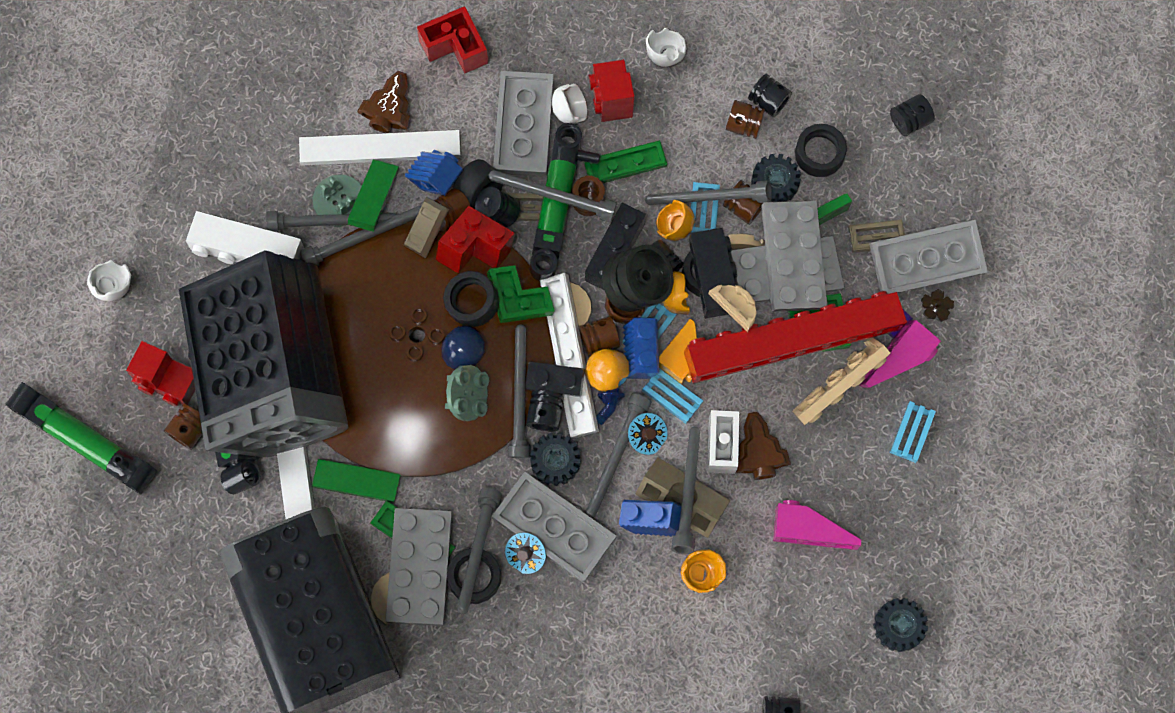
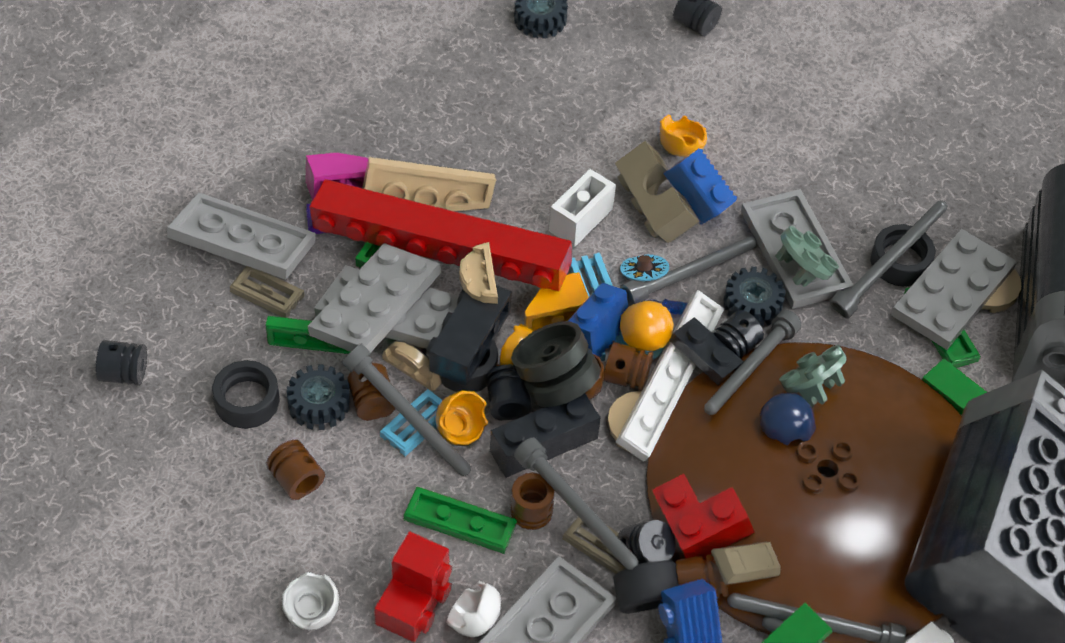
camera: 145 degrees left, 20 degrees down
(460, 282) = (761, 429): black tyre -> none
(518, 303) = (697, 436): green plate -> none
(523, 496) = (807, 253): none -> sand green plate
(525, 552) = (839, 244): piece -> none
(552, 212) = (612, 485): piece -> none
(684, 541) = (692, 136): dark grey piece -> none
(759, 450) = (545, 187): reddish brown rock -> none
(770, 95) = (249, 478): black piece -> none
(805, 526) = (562, 114): dark pink slope -> none
(920, 411) = (392, 124): medium azure tile -> none
(937, 305) = (271, 204): dark brown plant -> none

